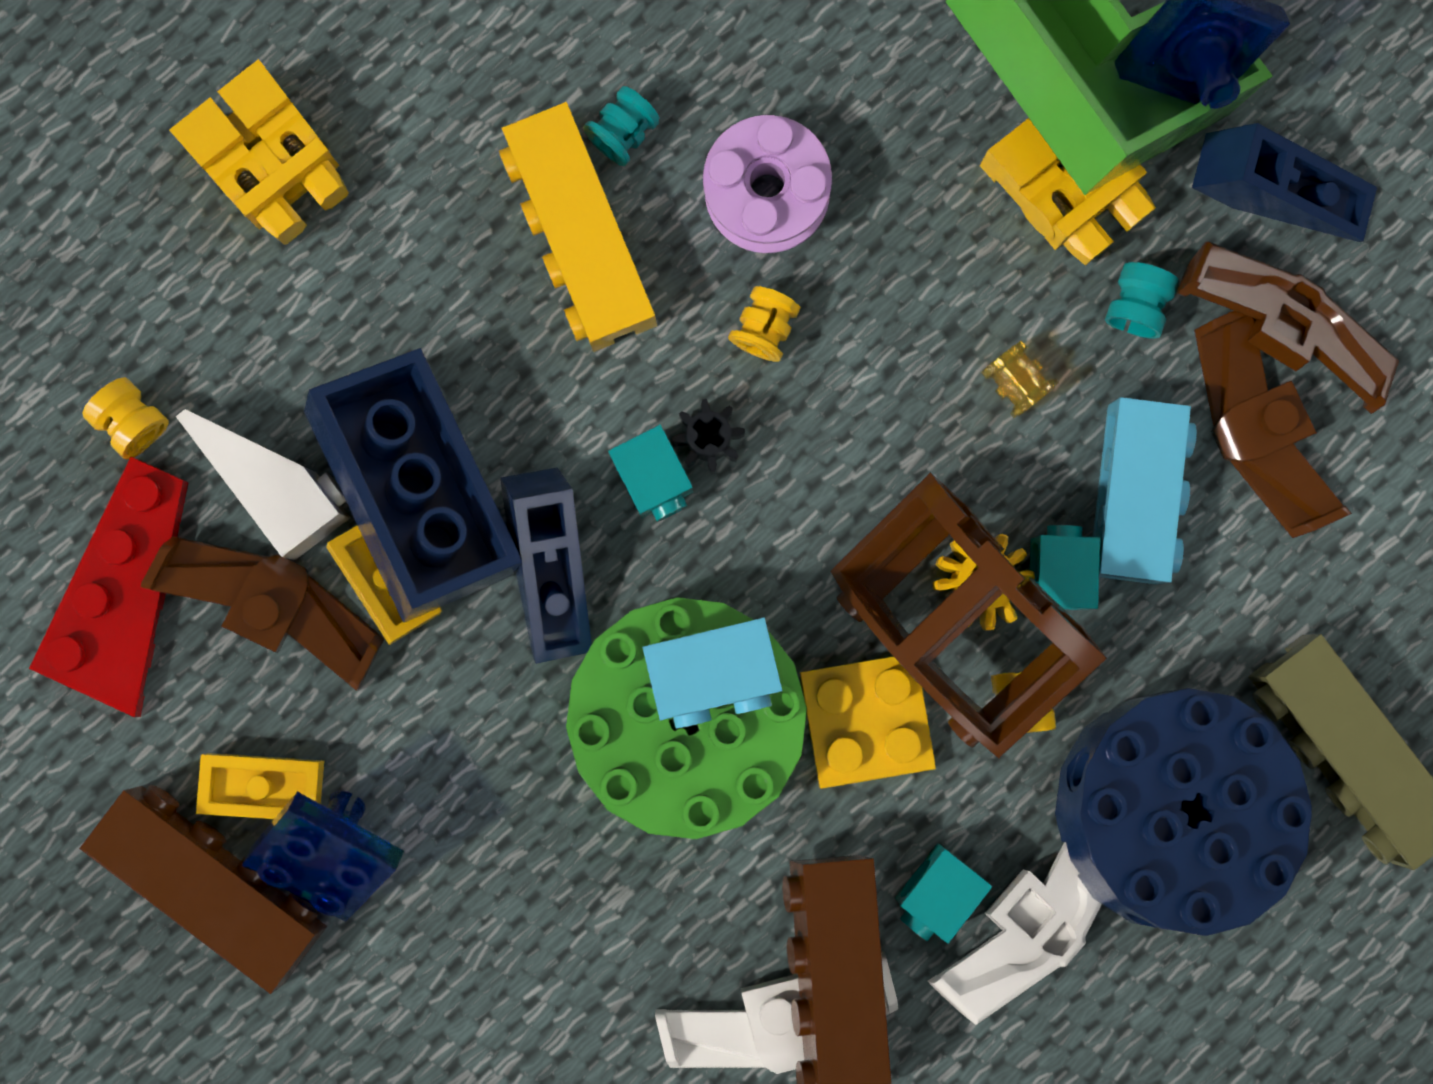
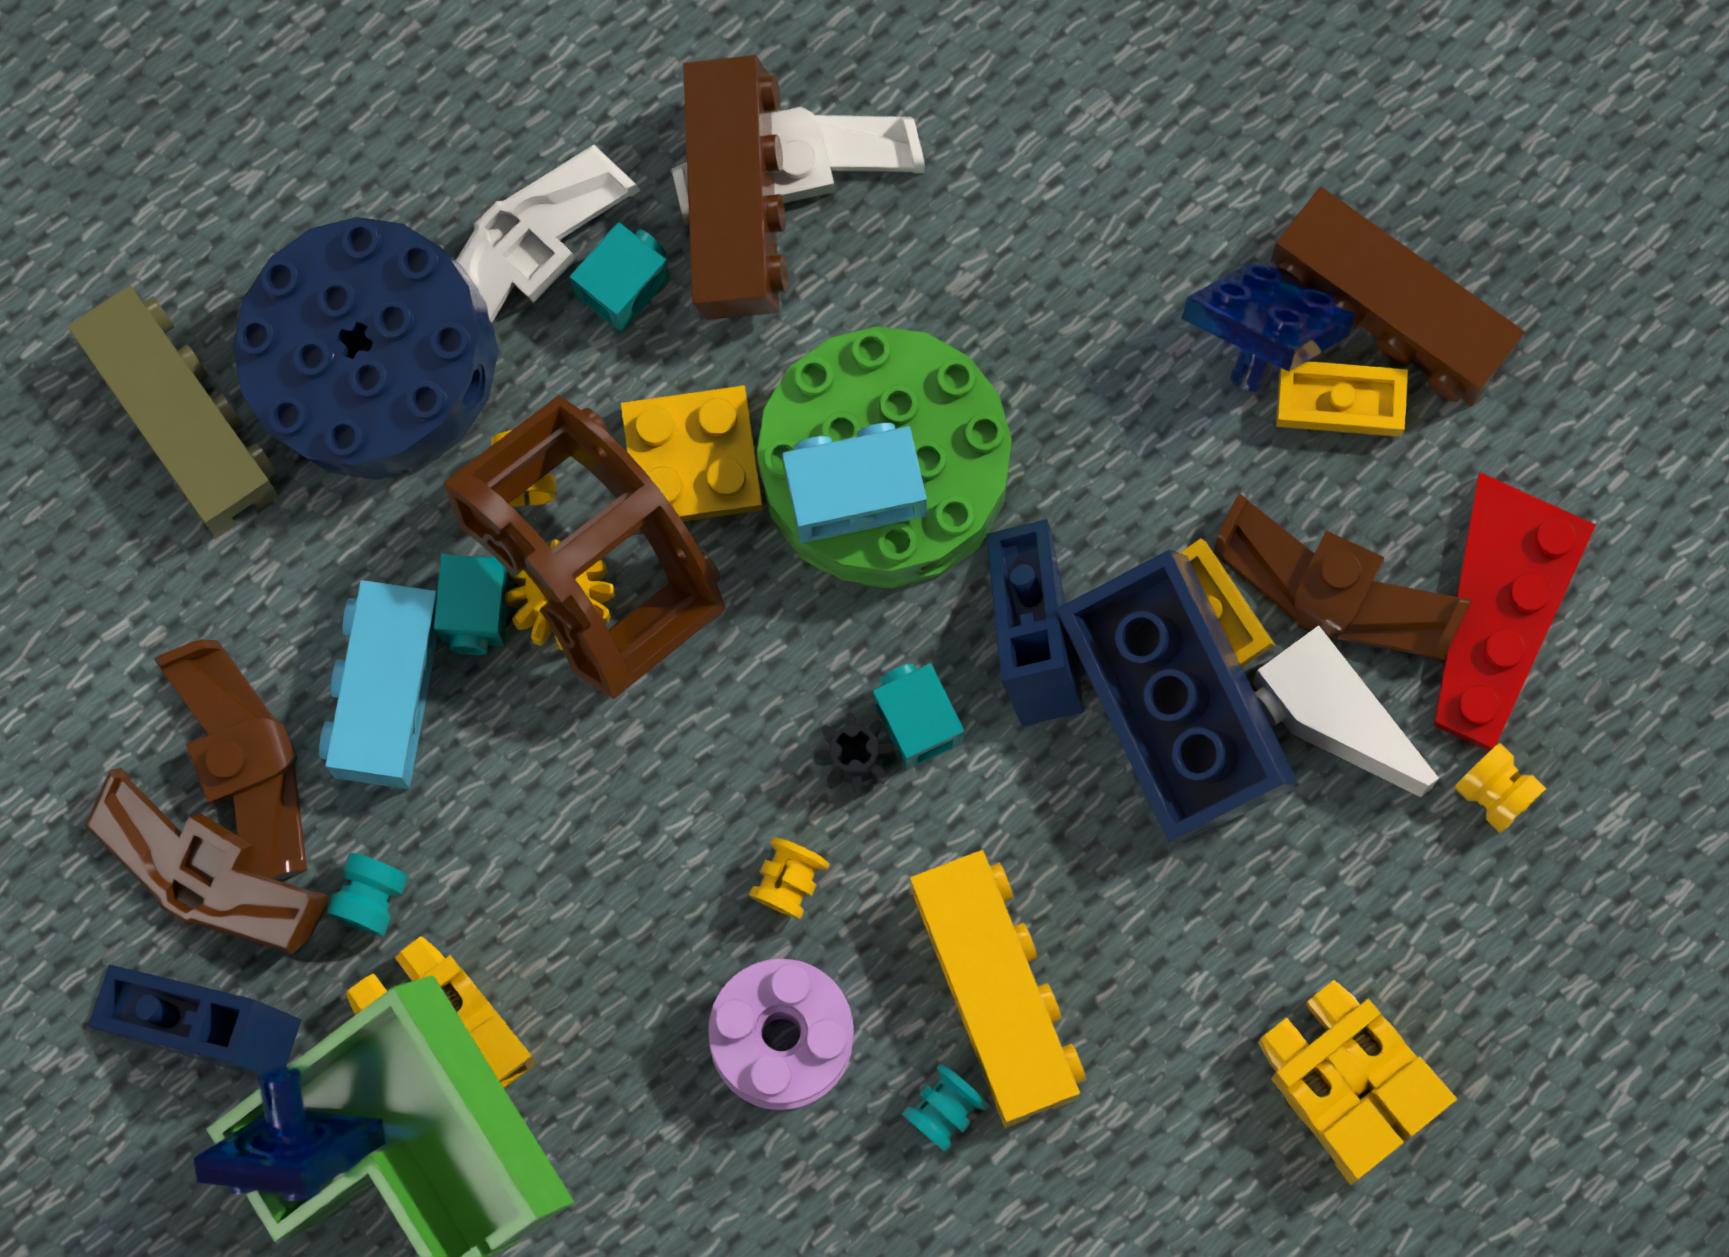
camera: 175 degrees left, 10 degrees down
(1019, 379) = (508, 811): clear yellow bush -> none

